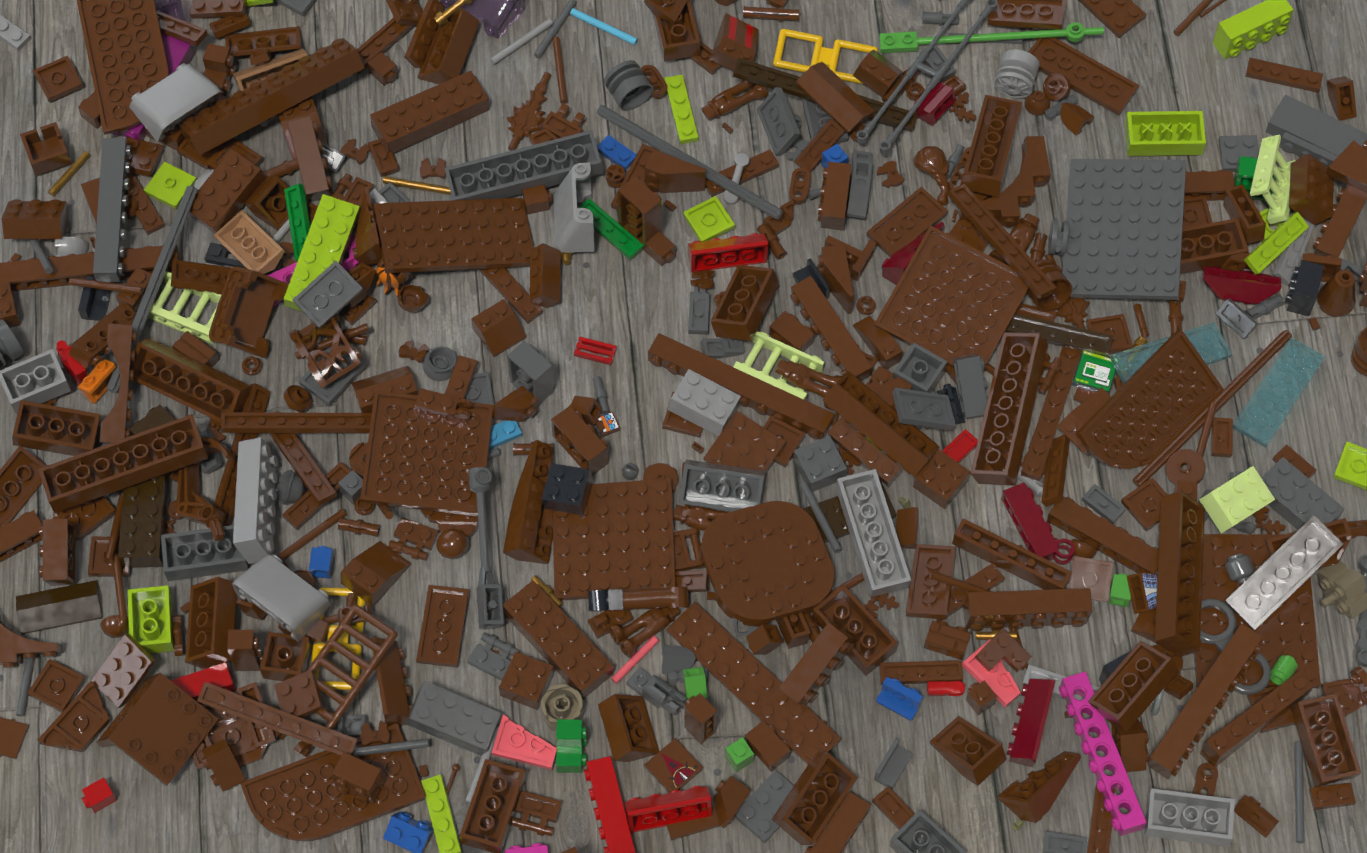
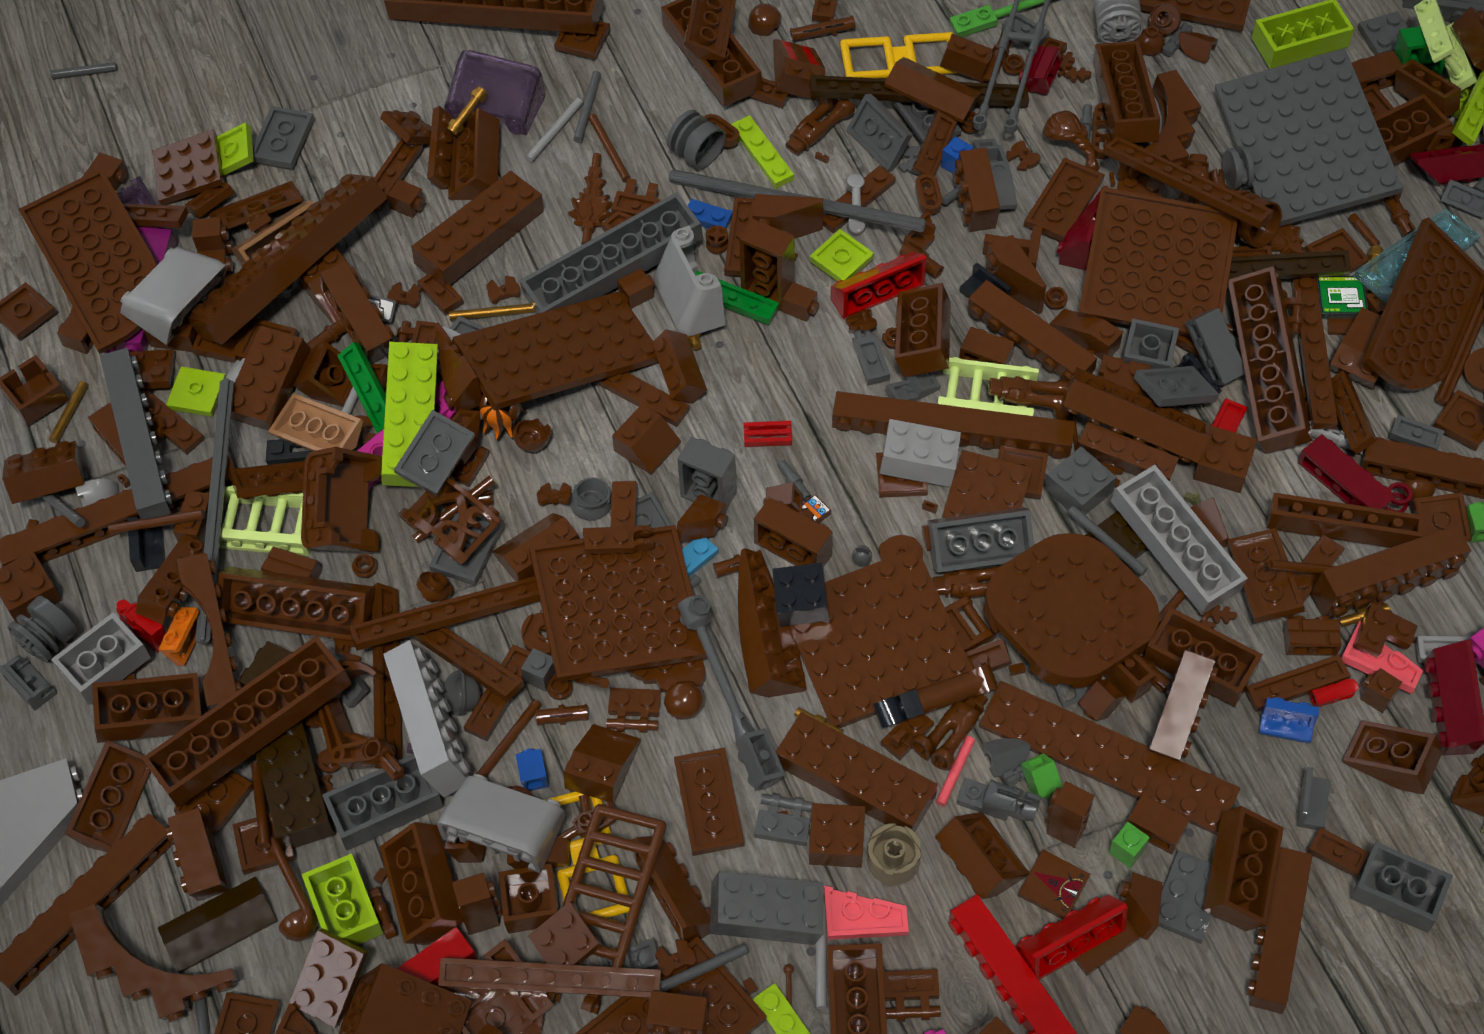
camera: 15 degrees left, 5 degrees down
(570, 741) = (919, 893): green brick -> none
(603, 26) = (641, 90): medium azure piece -> none

